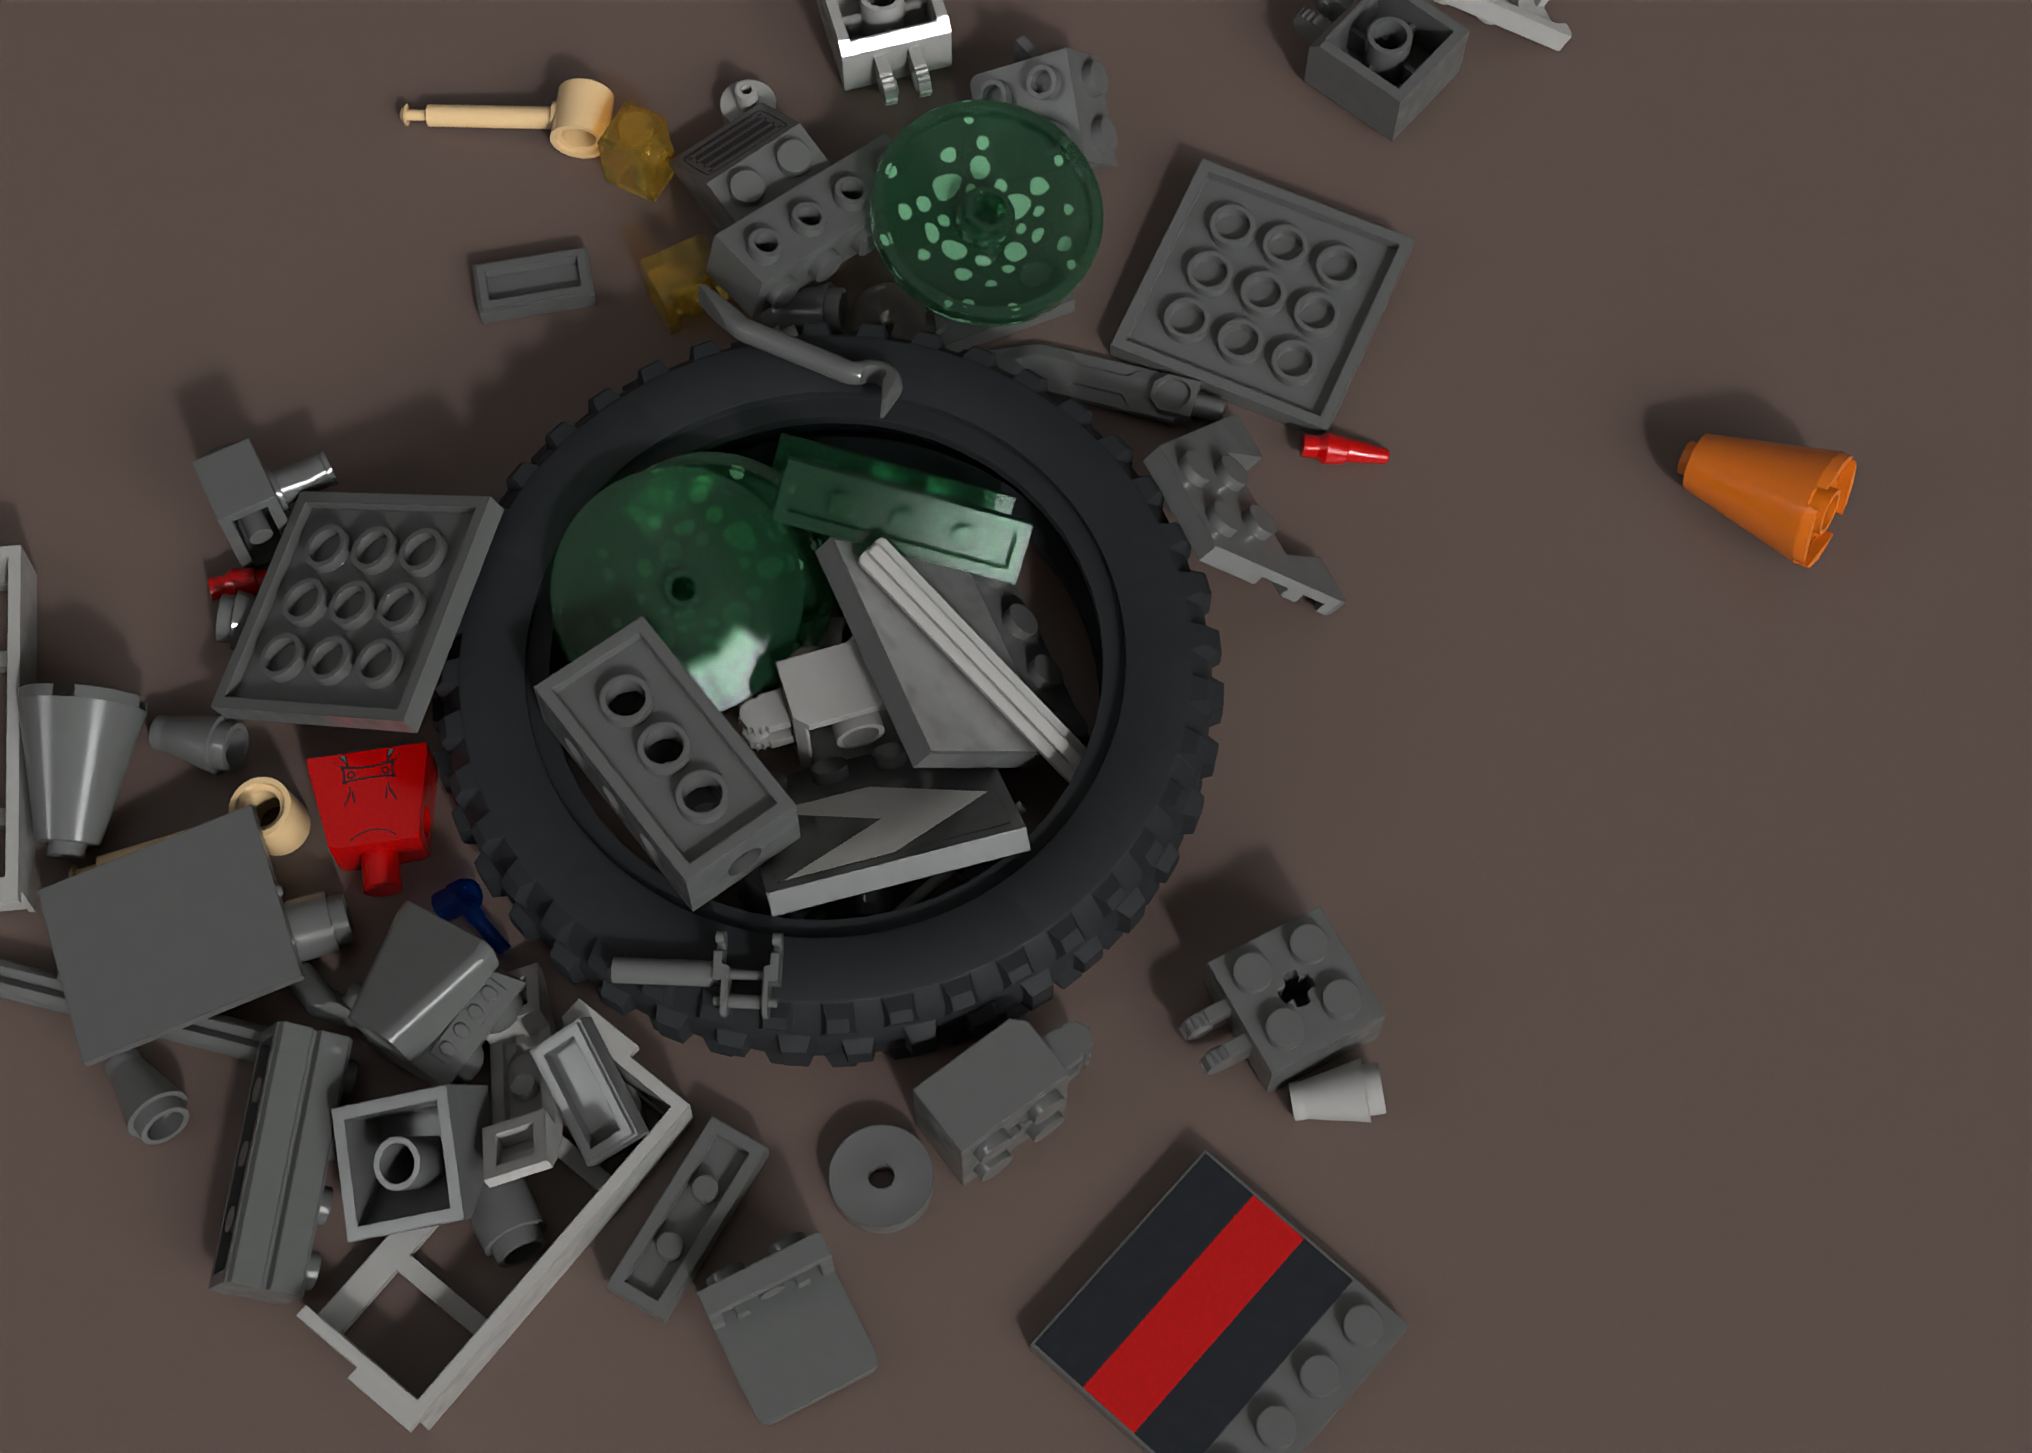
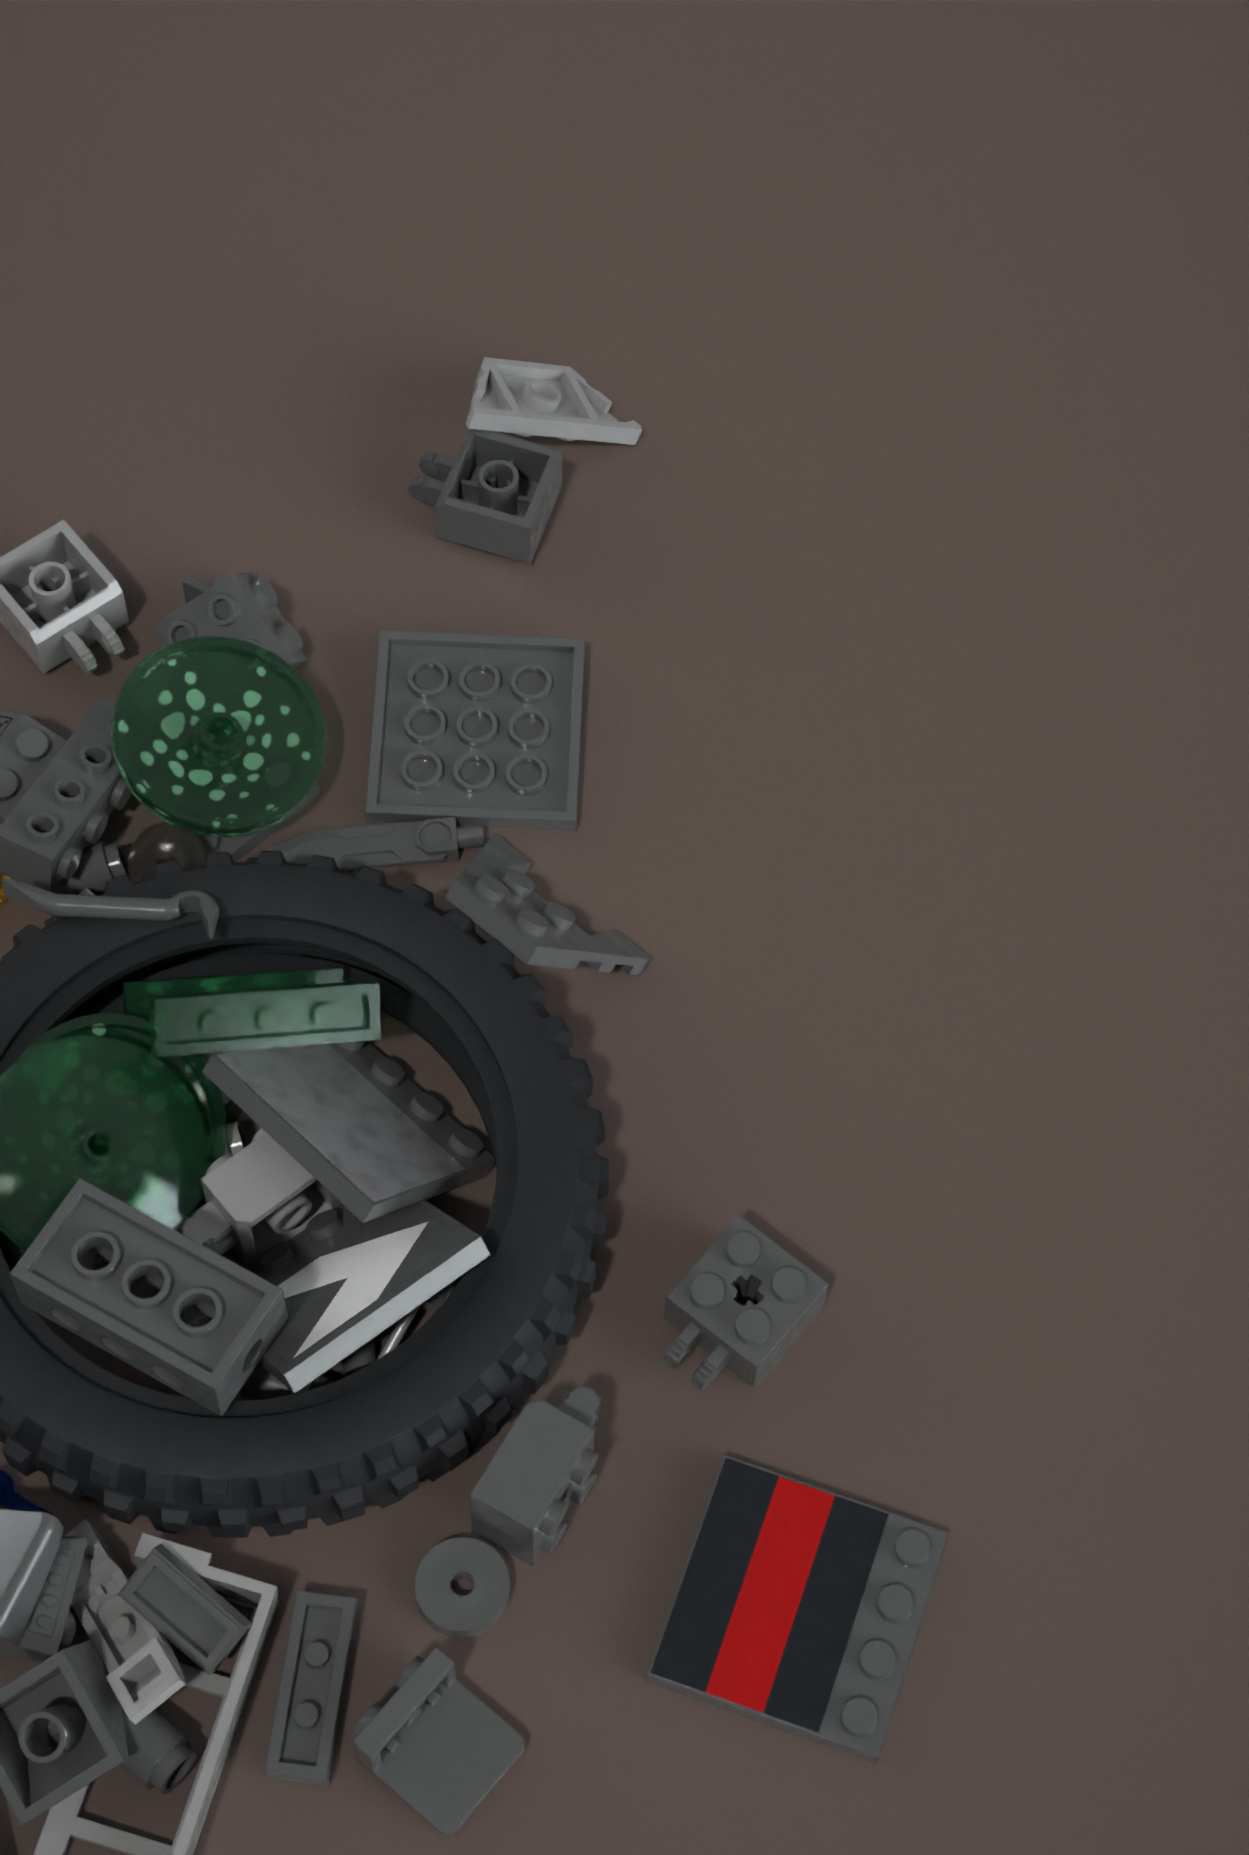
camera: 25 degrees left, 5 degrees down
(707, 973) = (254, 1465): dark grey piece -> none
(973, 657) = (372, 1113): light grey axle -> none
(1338, 449) = (592, 833): red piece -> none
(1340, 1094) = (815, 1365): light grey cone -> none
(1771, 489) = (954, 745): orange cone -> none

